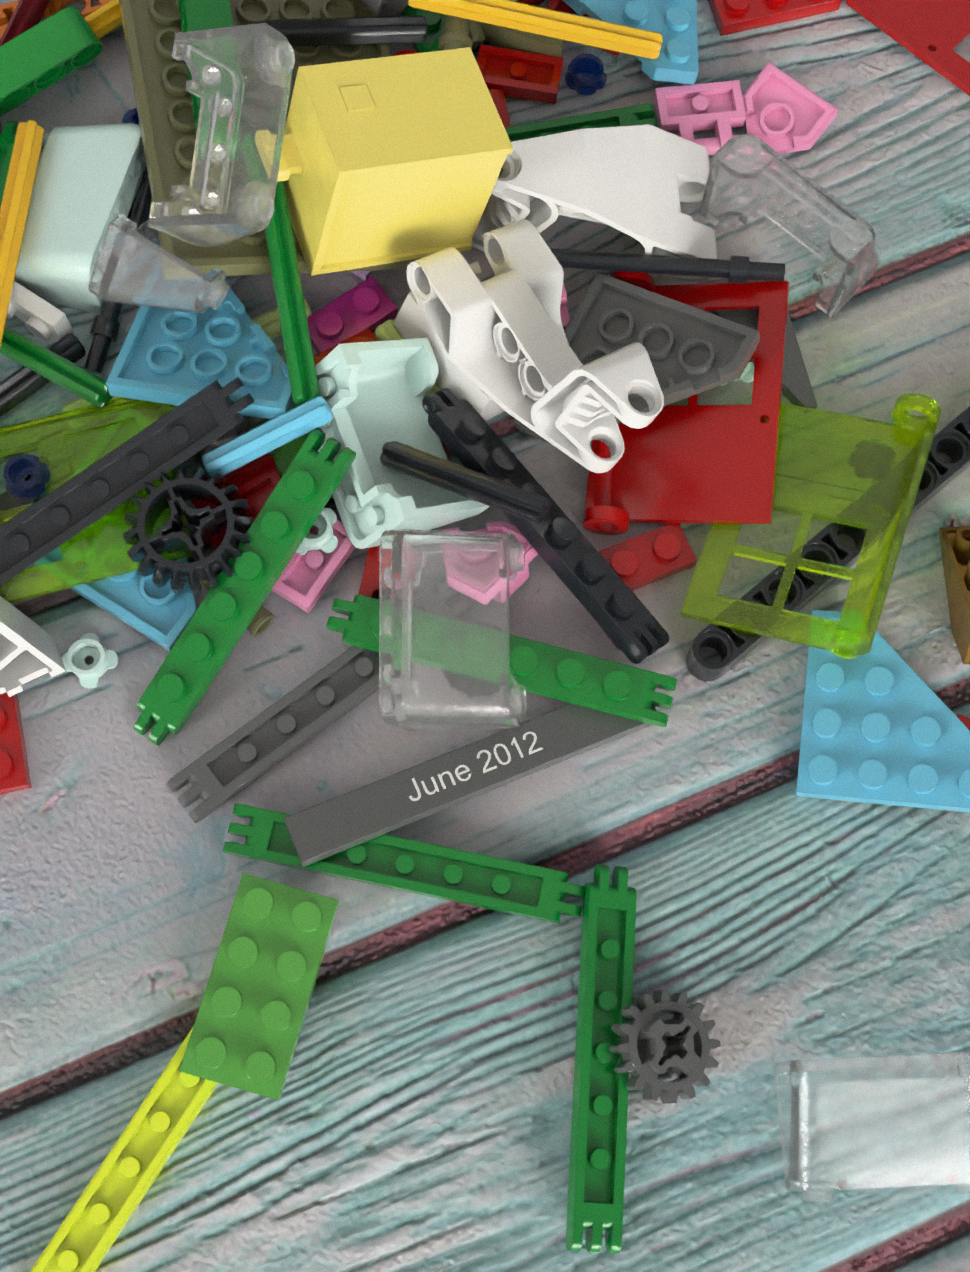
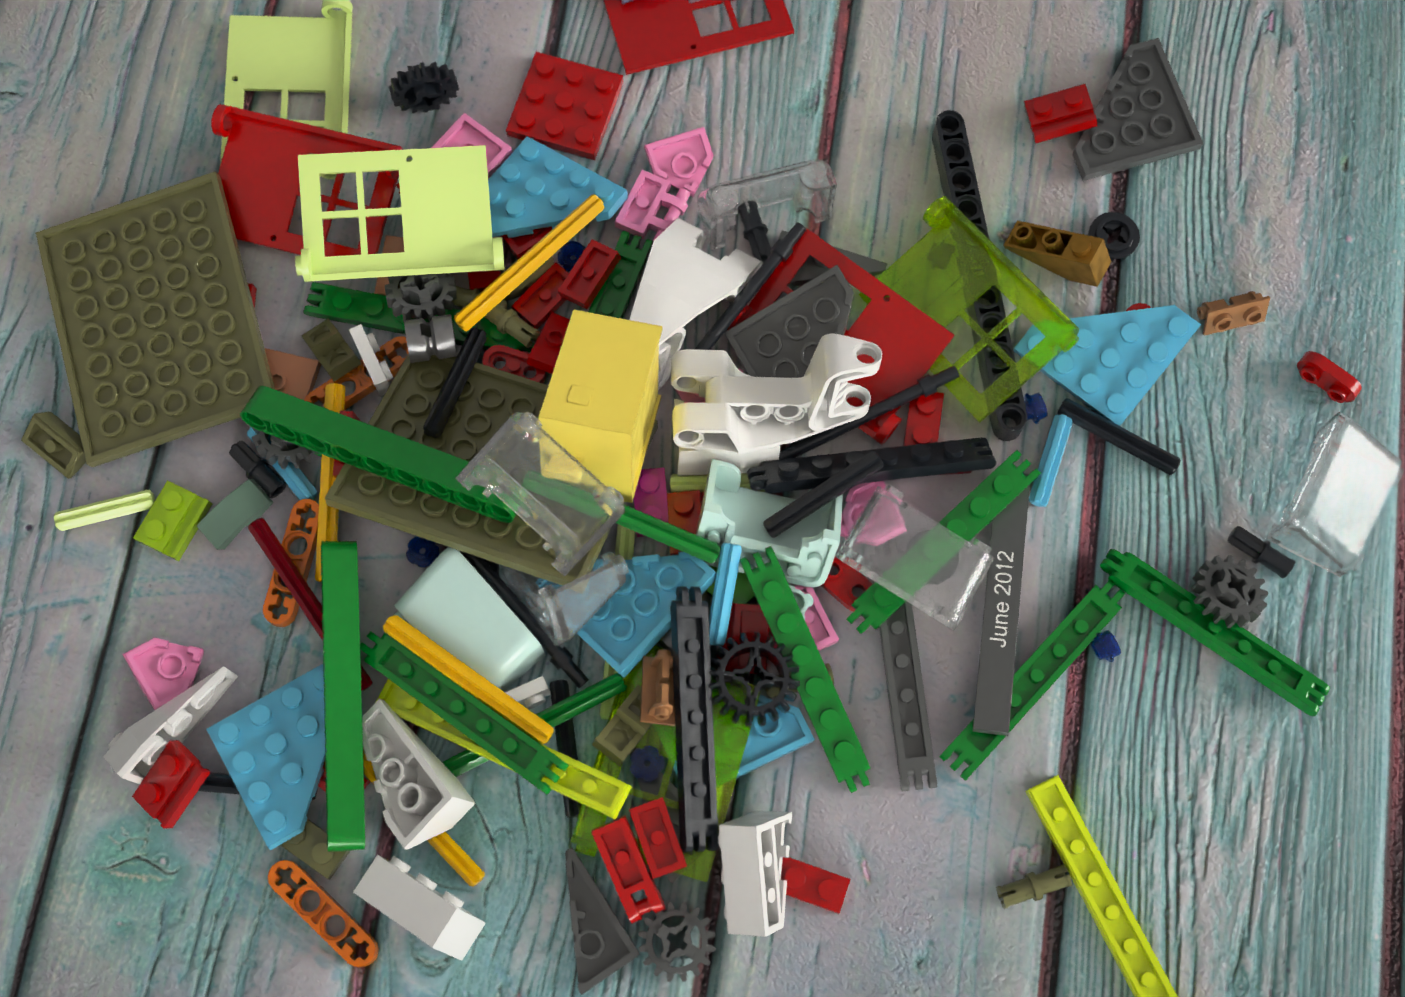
camera: 55 degrees left, 0 degrees up
(55, 431) = (623, 730): none -> olive slope
(86, 647) = (792, 786): light aqua plate -> none
(102, 434) = (658, 689): none -> medium nougat hinge
(139, 1006) = (1034, 886): none -> olive pin
(260, 986) = (1065, 803): bright green plate -> none
(496, 930) = (1105, 646): none -> clear blue plate
(569, 94) = (589, 274): none -> red plate
(682, 526) = (925, 386): none -> black bar
(696, 733) = (1050, 460): none -> medium azure axle
(748, 1061) = (1261, 551): none -> black axle
(750, 675) = (1035, 407): none -> clear blue plate
(753, 239) = (755, 231): none -> black axle
(784, 801) = (1120, 437): none -> black axle

